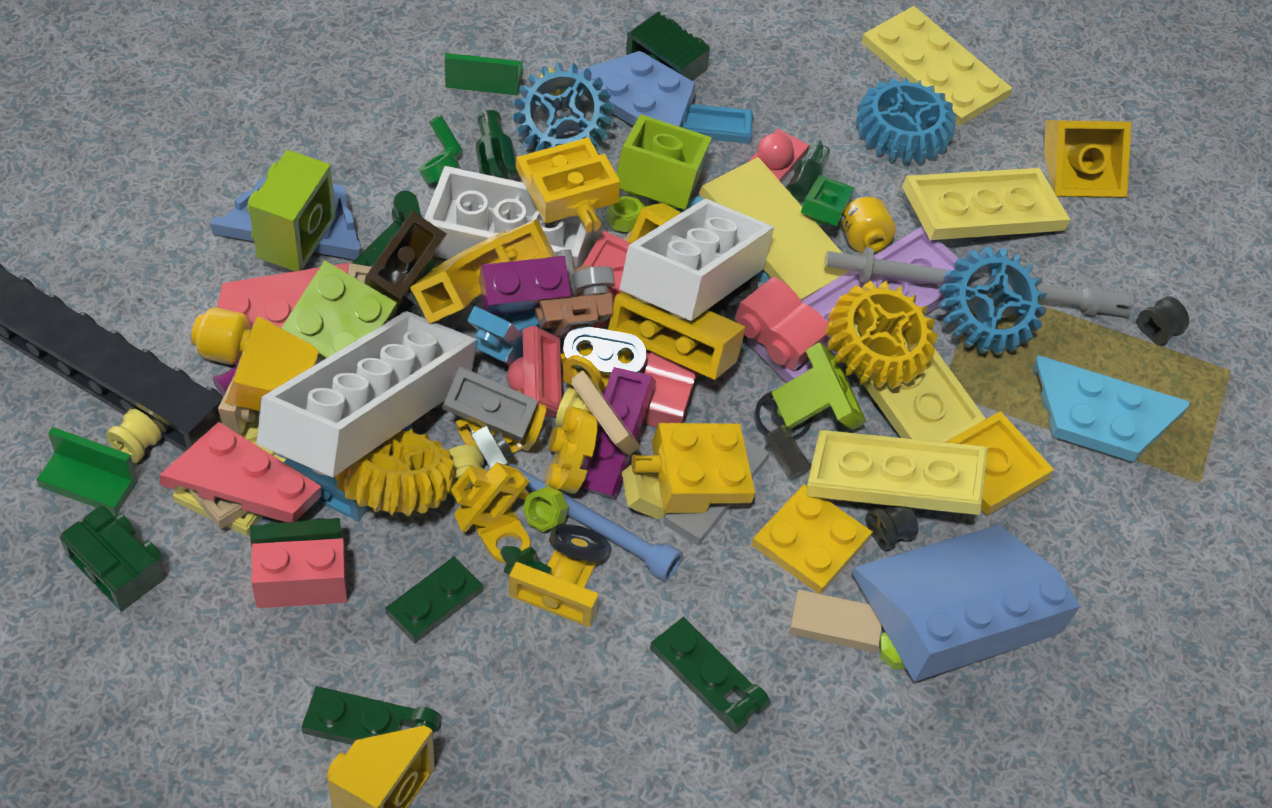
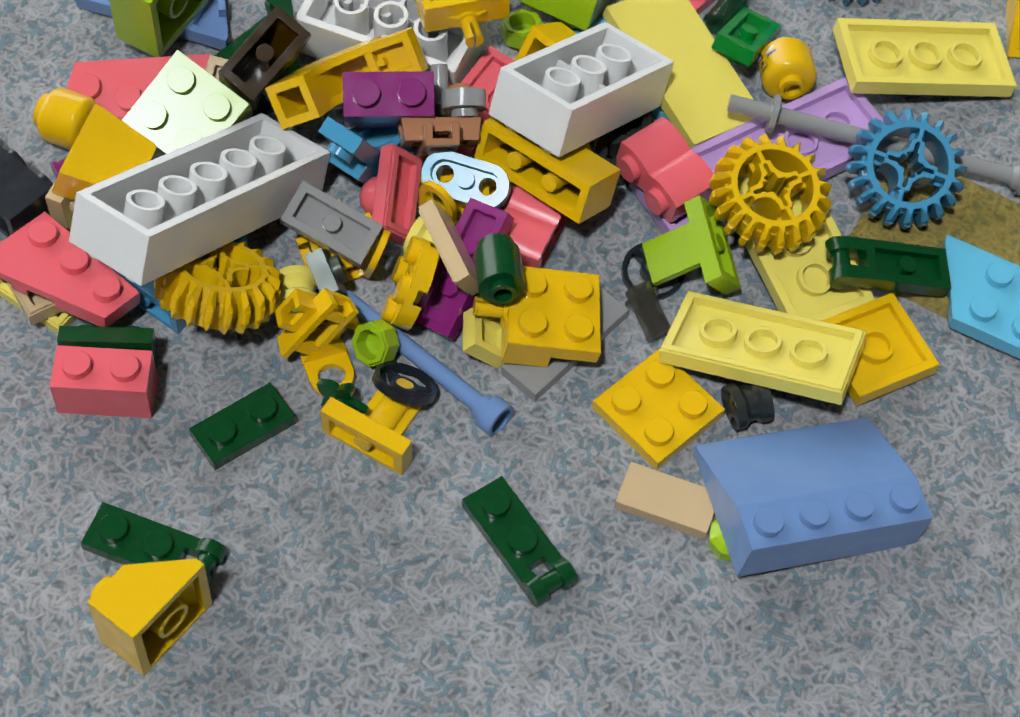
camera: 10 degrees right, 5 degrees up
(653, 427) = (499, 269): none -> dark green brick
(993, 387) = (888, 266): none -> dark green plate

